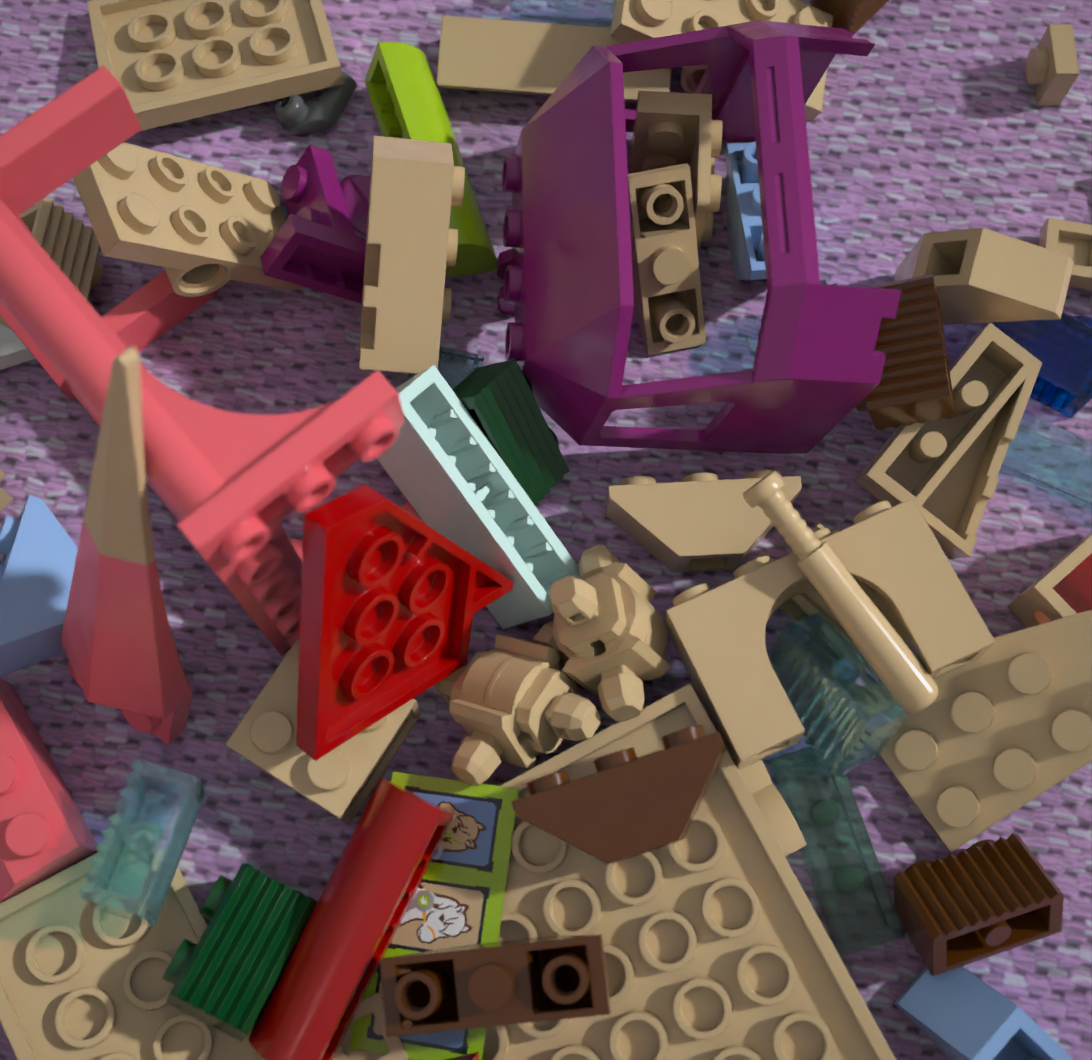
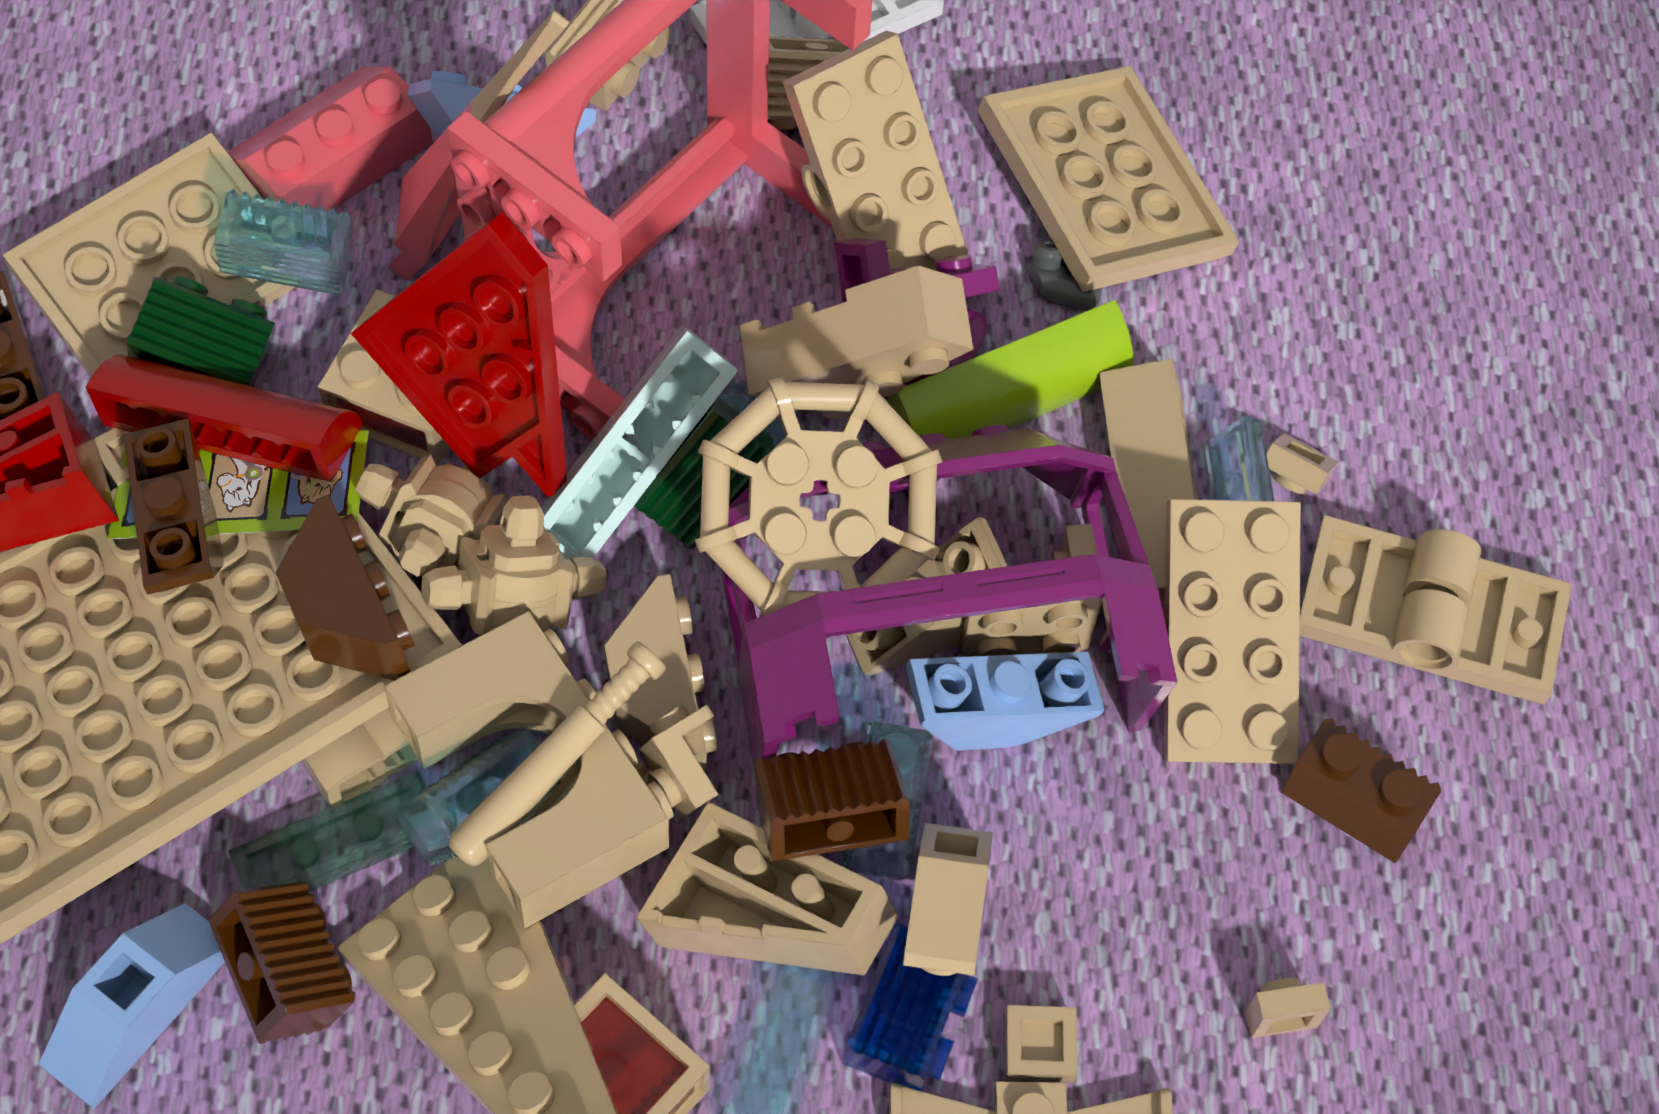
camera: 80 degrees right, 10 degrees down
(673, 255) = (791, 470): none -> tan plate
(828, 498) = (674, 763): none -> tan bracket

